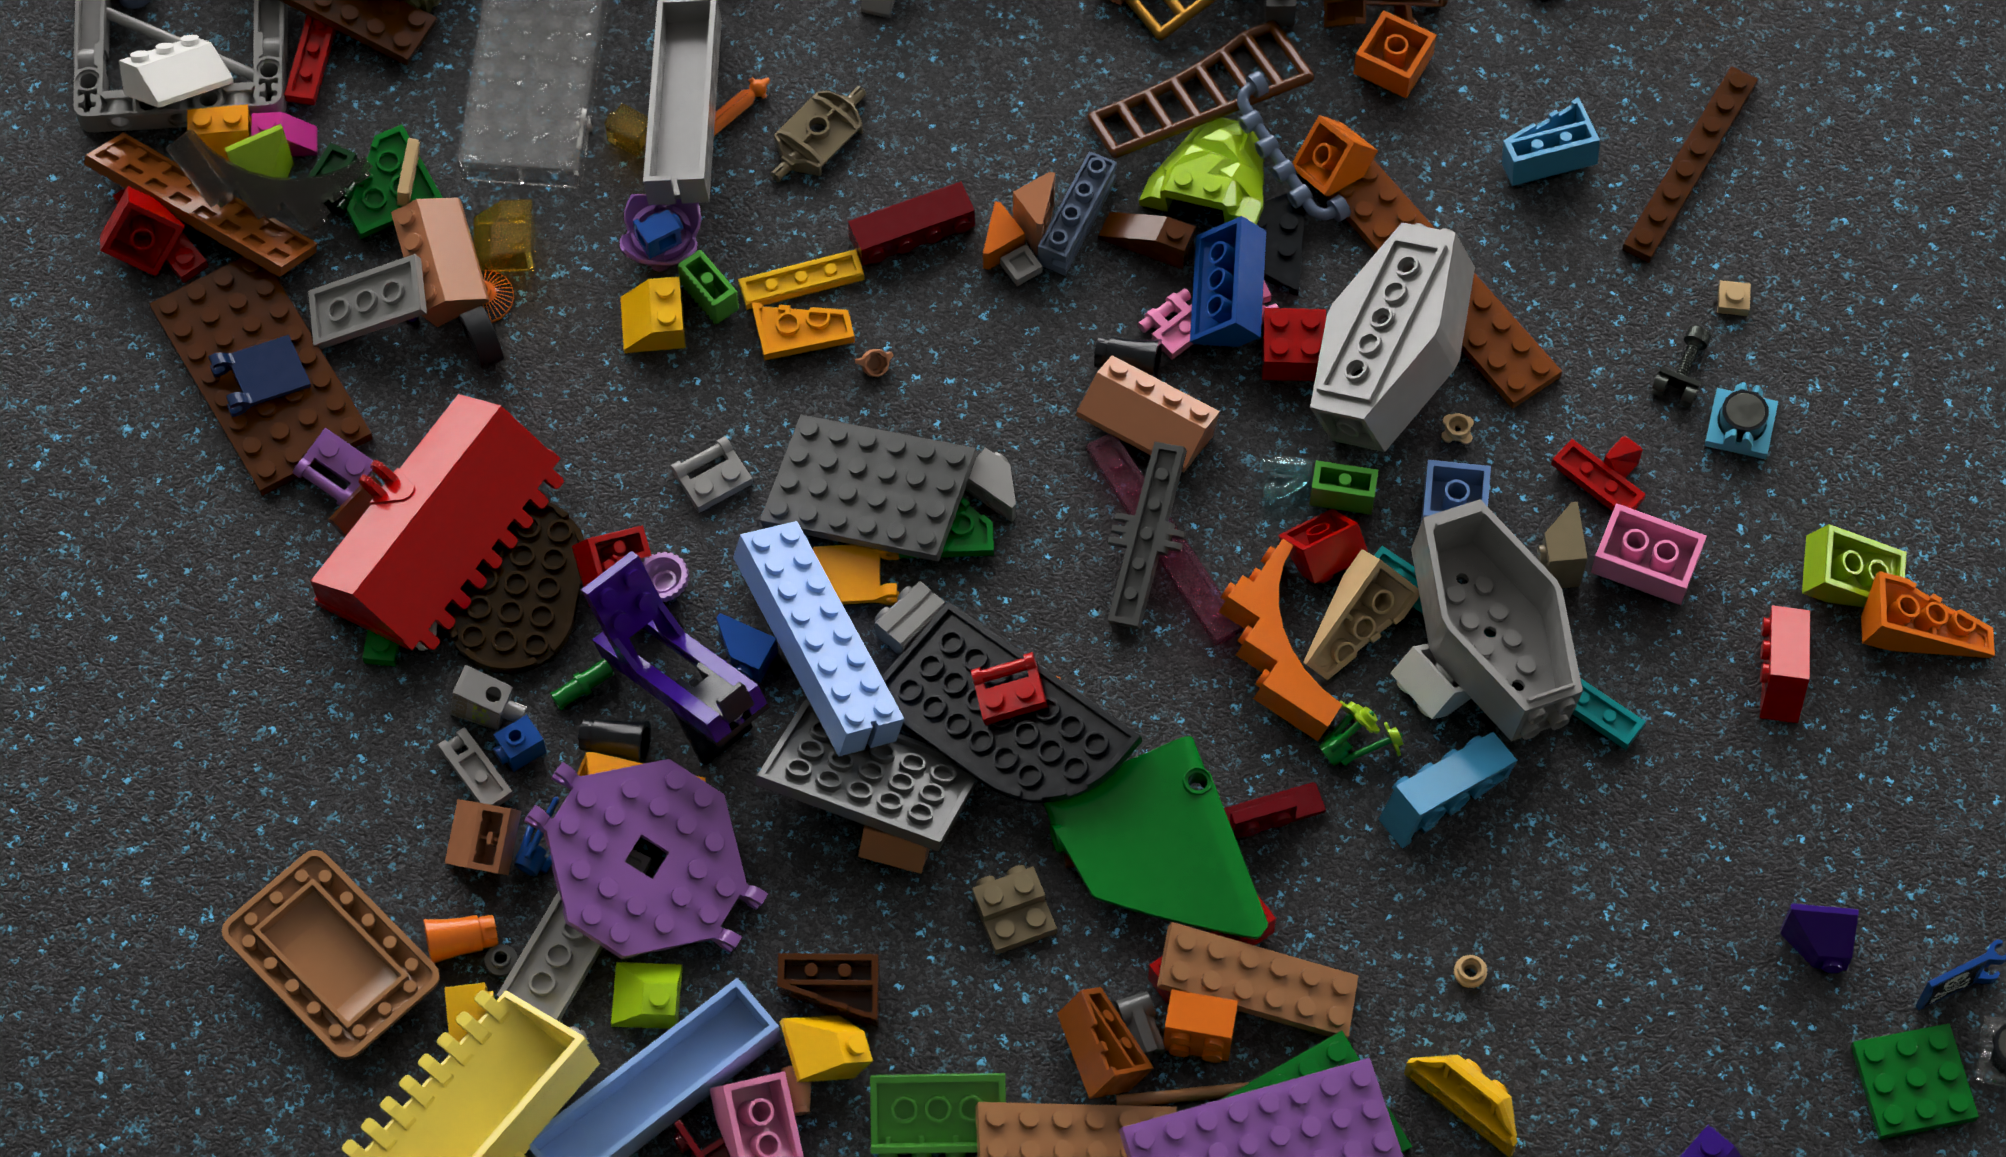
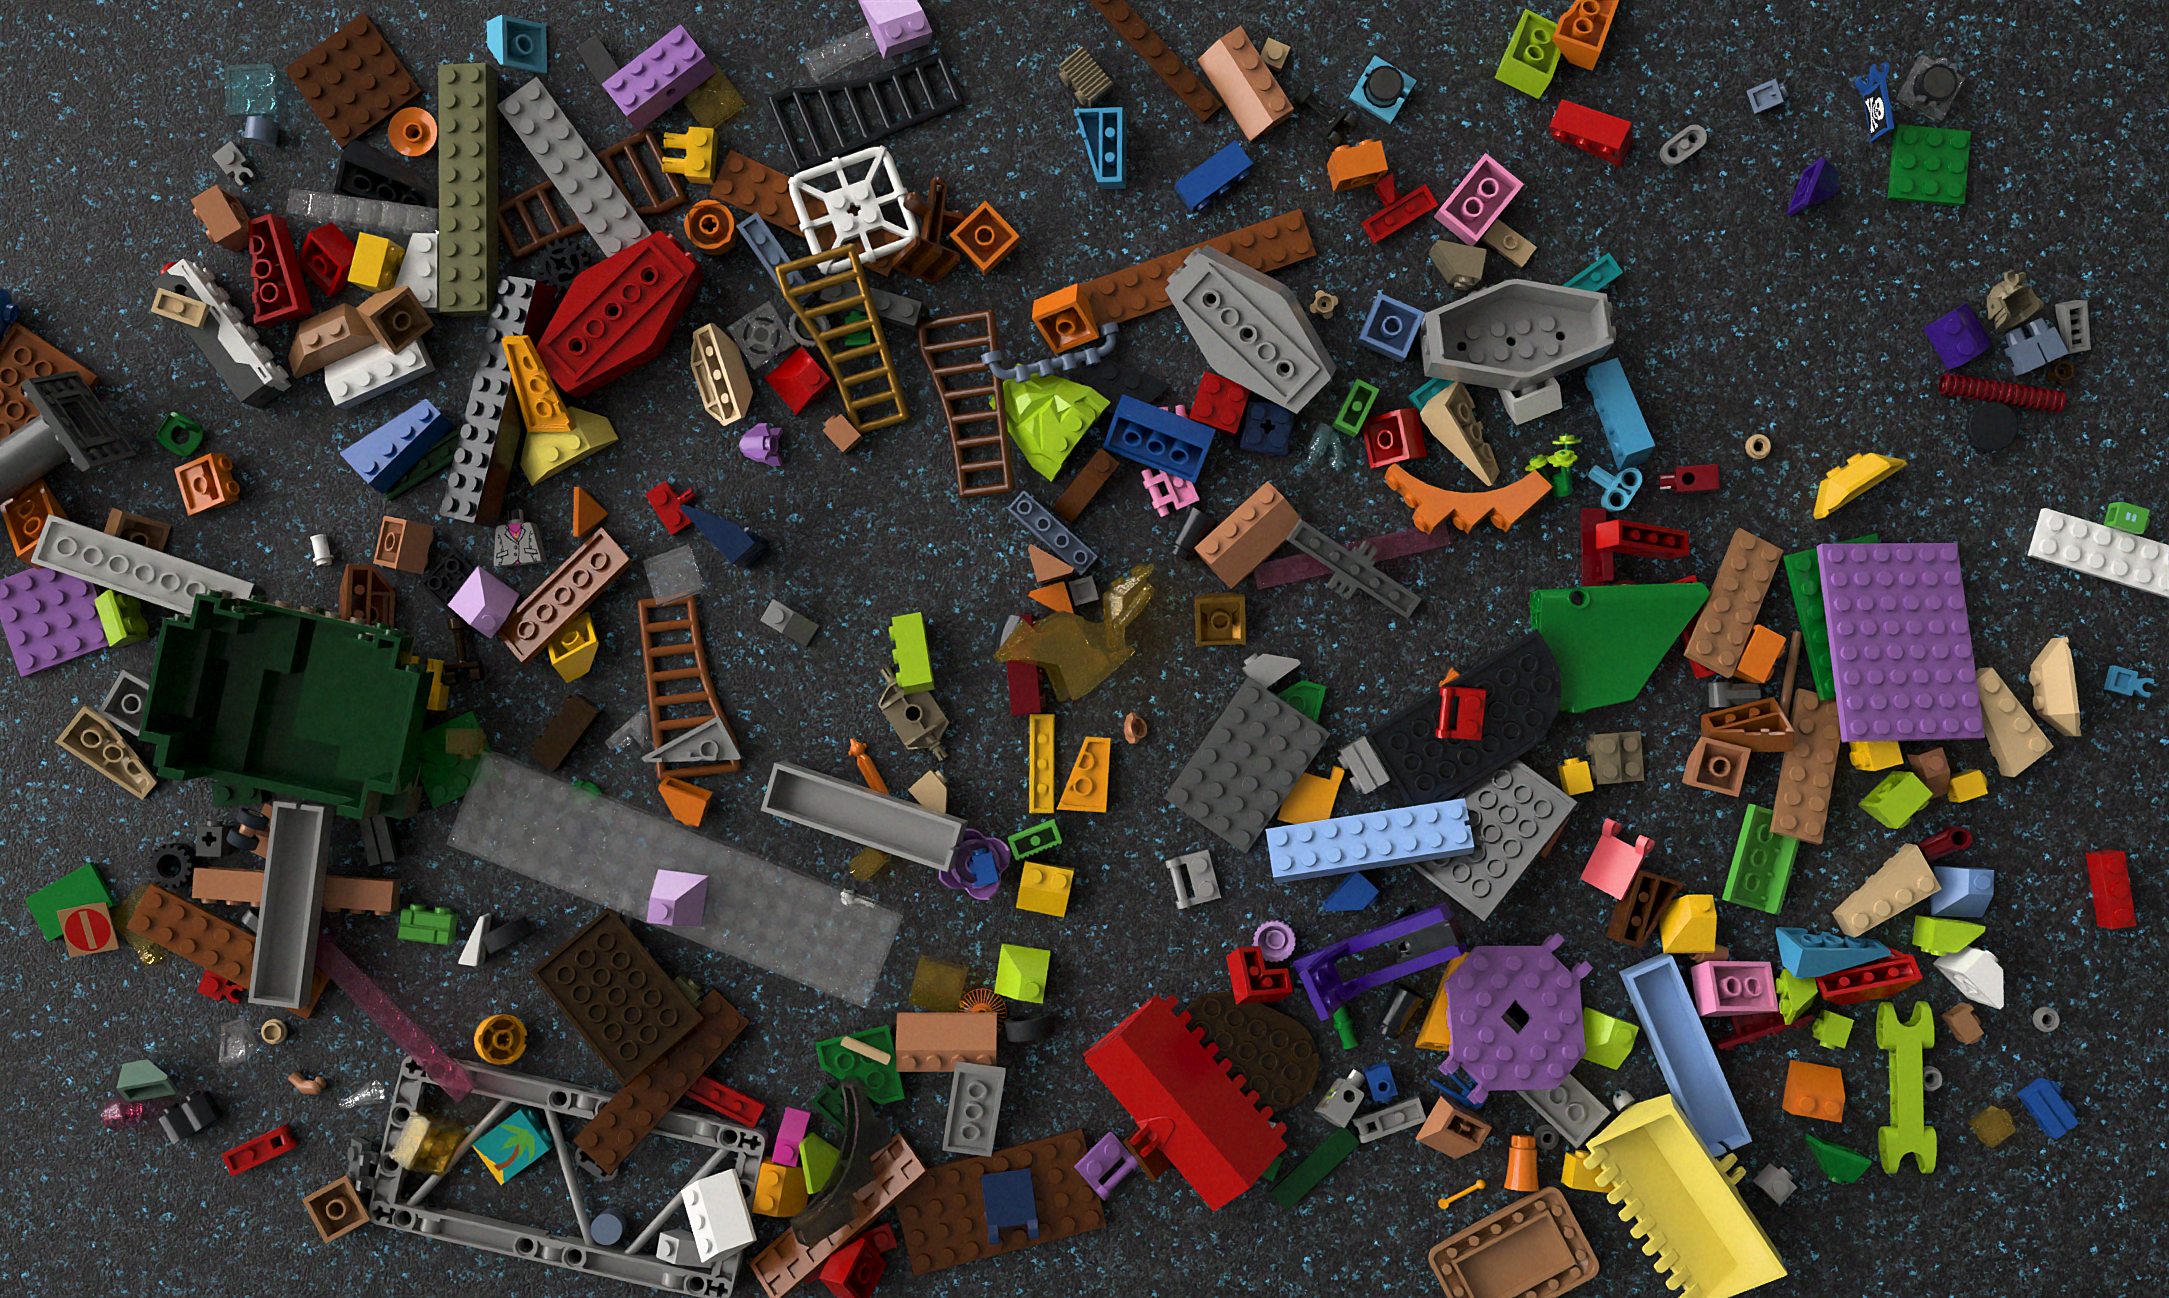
camera: 75 degrees left, 25 degrees up
(121, 45) = (680, 1249): none -> light grey slope
(384, 867) = (1444, 1203): none -> light orange hinge
(392, 703) = (1315, 1166): none -> dark green tile
(544, 325) = (1022, 973): none -> lime slope
(732, 171) = (931, 791): none -> tan slope
(884, 936) = (1615, 862): none -> coral flag
(887, 105) = (911, 653): none -> lime brick
(946, 252) = (1073, 649): none -> clear yellow piece
(972, 863) = (1575, 776): none -> yellow brick
(1036, 412) = (1220, 619): none -> pearl gold slope
(1040, 1021) = (1716, 766): none -> nougat slope
(1271, 417) = (1253, 436): none -> dark blue brick
(1297, 840) = (1642, 540): none -> red brick
(1357, 811) = (1616, 486): none -> medium azure beam
(1398, 896) = (1702, 479): none -> dark red torso
(1562, 269) = (1214, 177): none -> blue brick
(1612, 612) = (1508, 243): none -> tan plate
(1623, 109) = (1085, 78): none -> dark tan brick
(1634, 406) = (1357, 165): none -> orange brick
(1685, 275) = (1245, 84): none -> nougat slope
(1816, 773) = (1682, 146): none -> light grey plate
(1919, 856) = (1767, 96): none -> sand blue bracket

